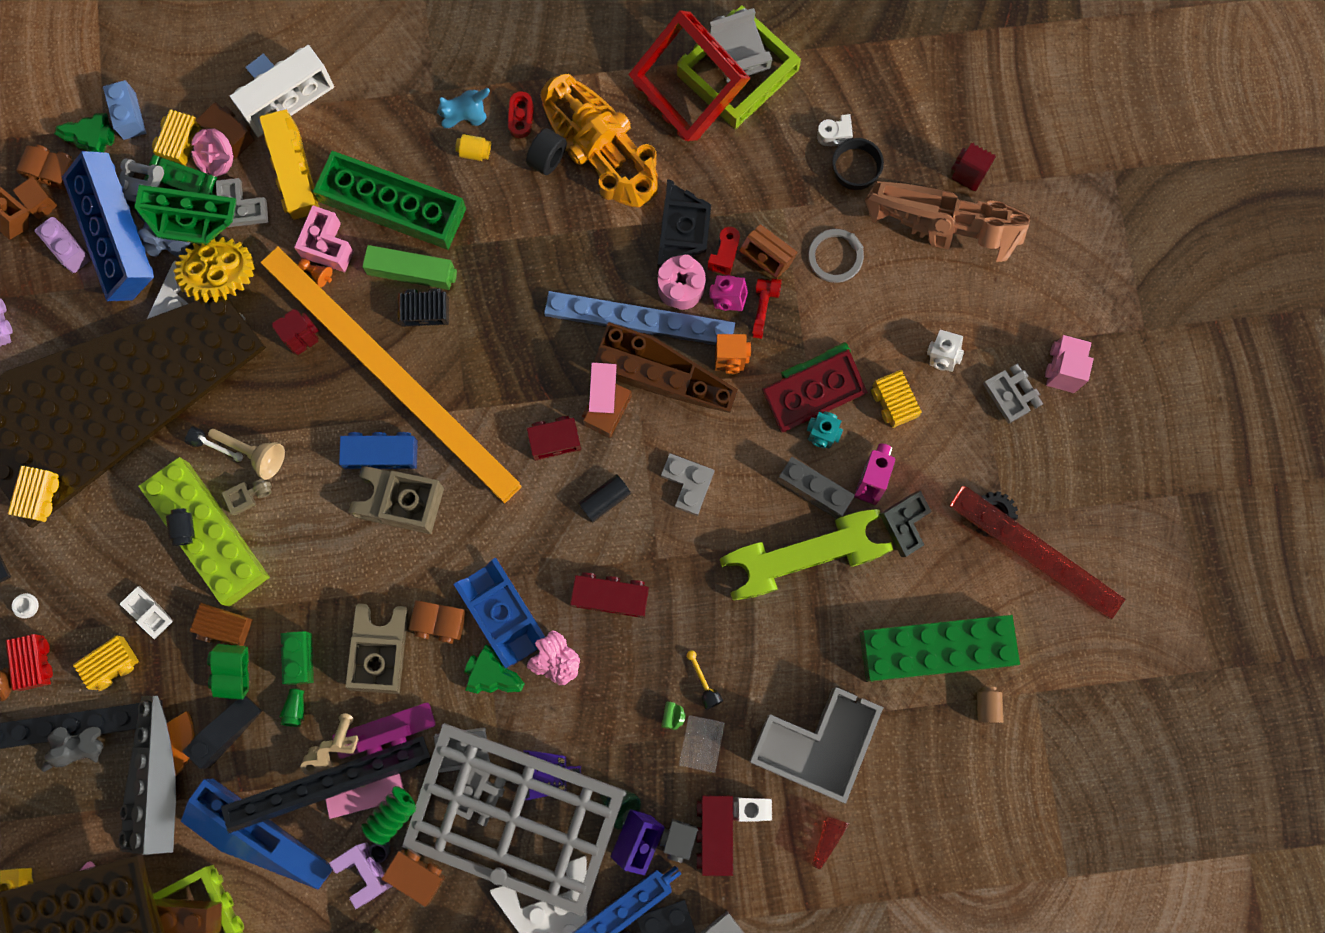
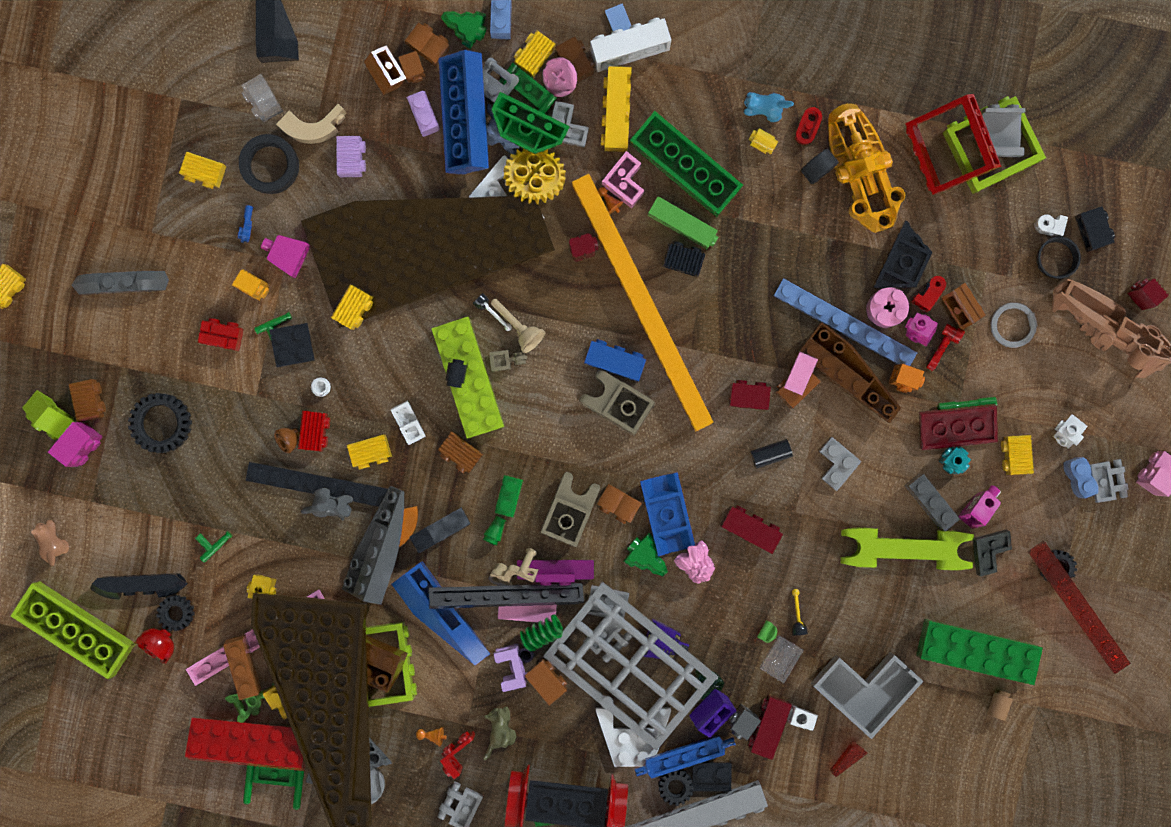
camera: 20 degrees right, 10 degrees up
(229, 671) = (457, 489): green brick -> none
(886, 119) = (1095, 228): none -> black brick
(983, 403) = (1079, 473): none -> medium blue brick

